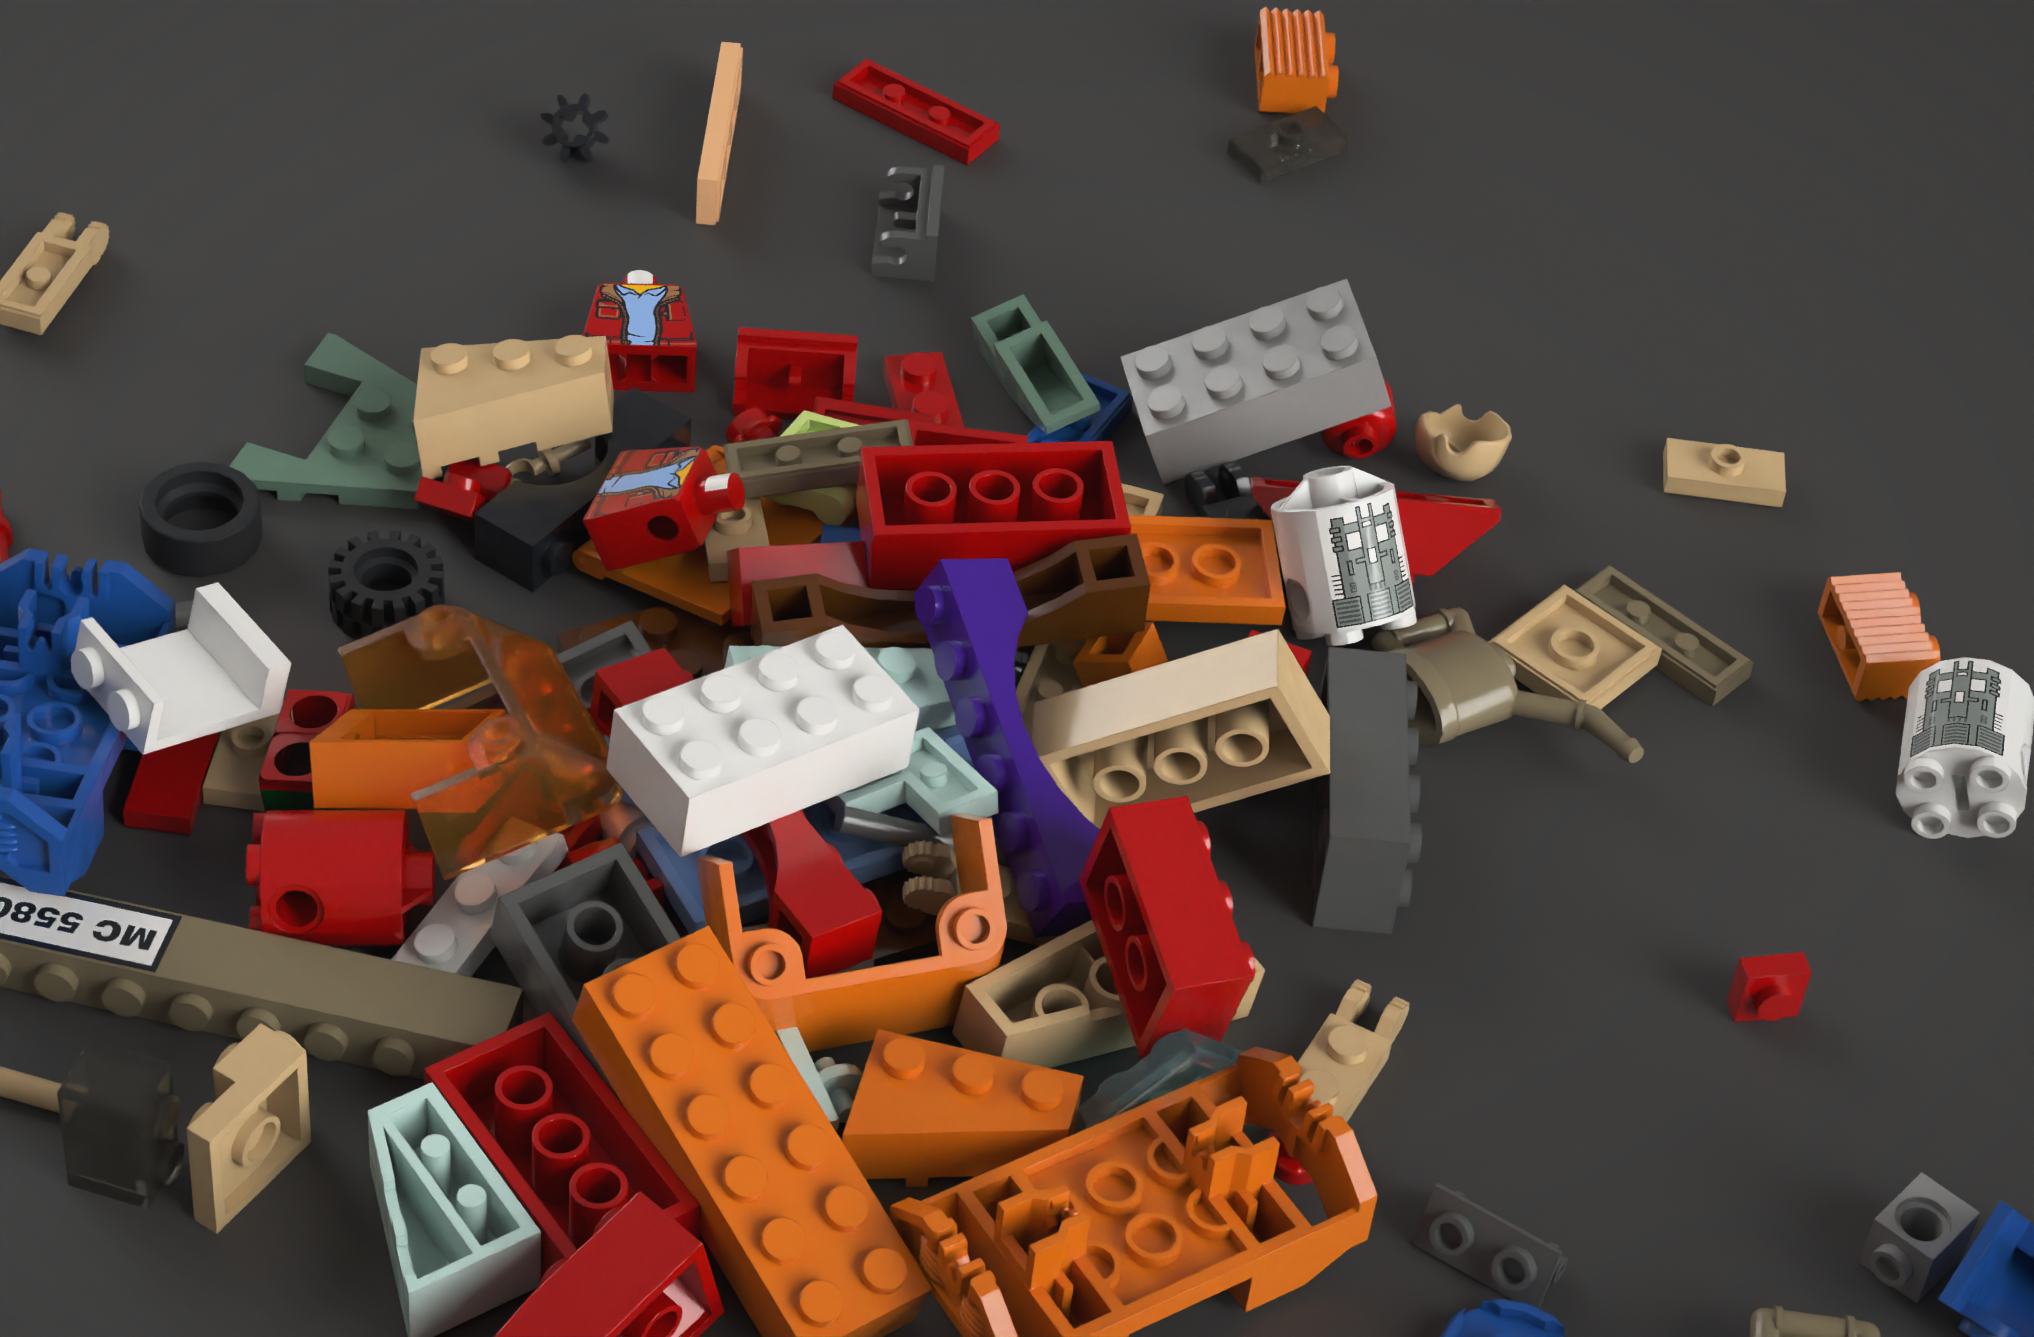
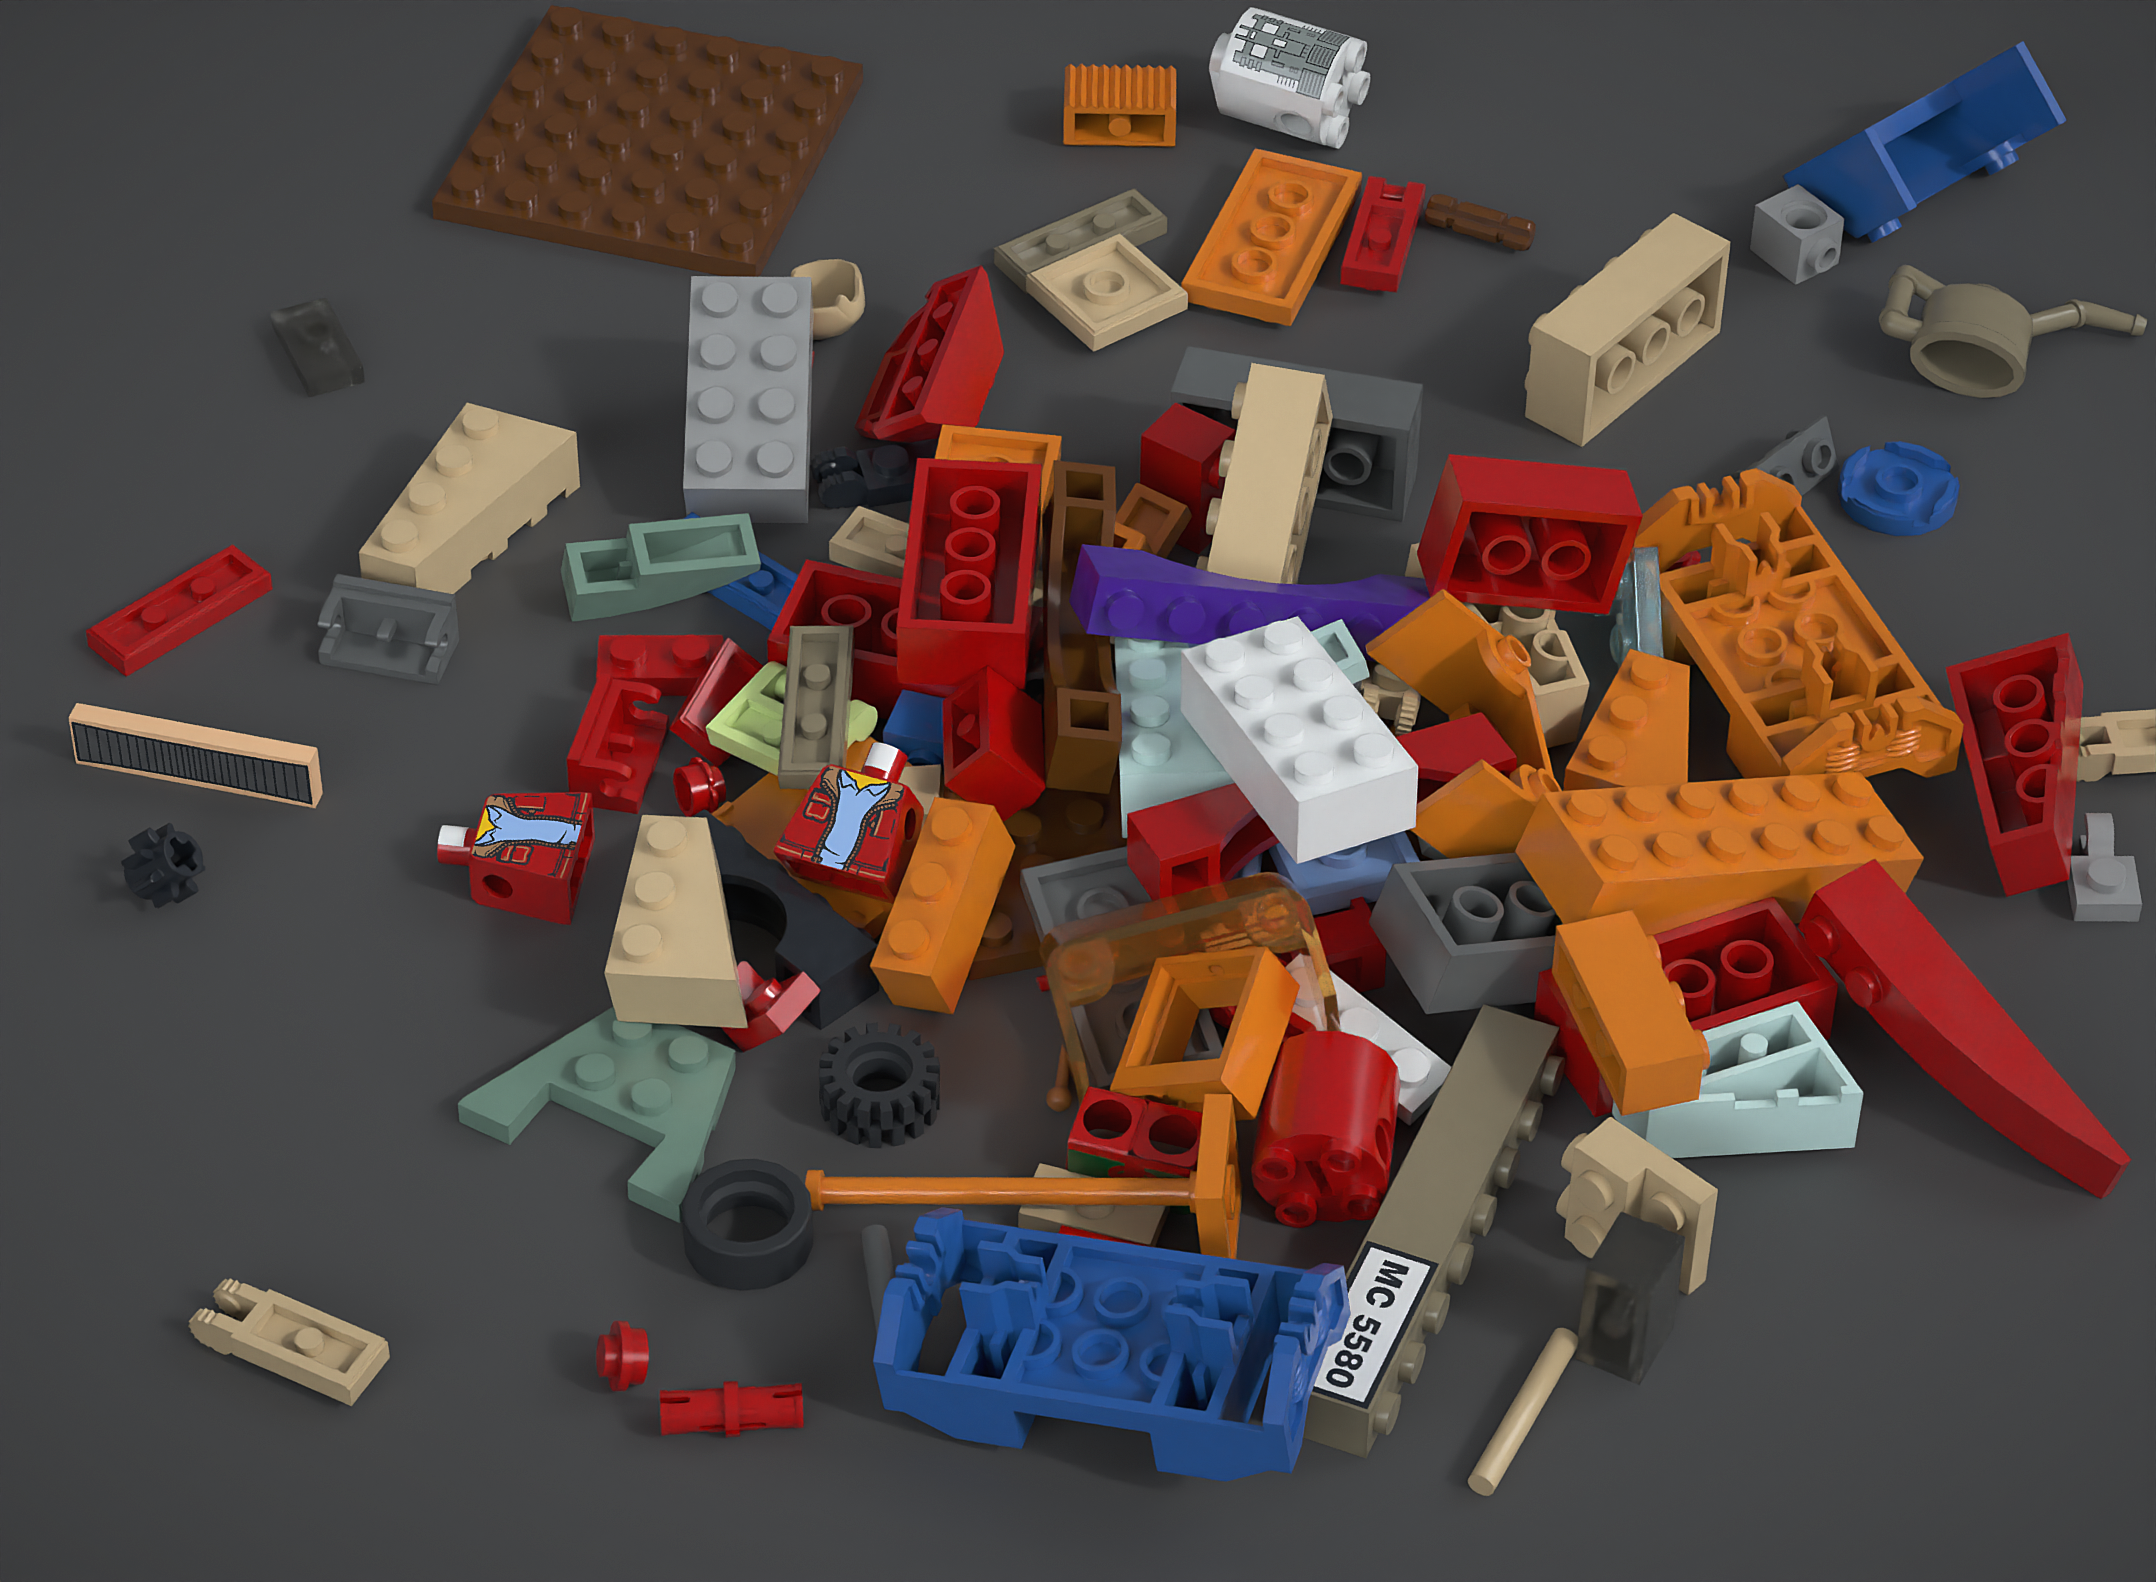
camera: 75 degrees left, 0 degrees up
(37, 459) = (623, 1356): none -> red plate
(186, 681) = (1070, 1191): white panel -> none
(221, 786) = (1211, 1191): none -> orange tile
(466, 1062) = (1629, 1012): none -> orange brick
(588, 579) = (943, 905): none -> orange brick
(1073, 240) = (469, 498): none -> tan wedge
(1294, 61) = (198, 314): orange brick -> none
(1343, 556) = (1018, 373): white cylinder -> none
(1472, 685) = (1141, 354): dark tan piece -> none
(1643, 1060) = (1626, 329): none -> tan brick
(1679, 321) = (650, 143): none -> reddish brown plate
(1724, 472) = (875, 157): tan plate -> none
(1724, 777) = (1272, 237): none -> orange plate
(1767, 866) = (1382, 235): none -> red plate
(1768, 987) = (1529, 256): red plate -> none
(1827, 951) = (1480, 222): none -> reddish brown axle

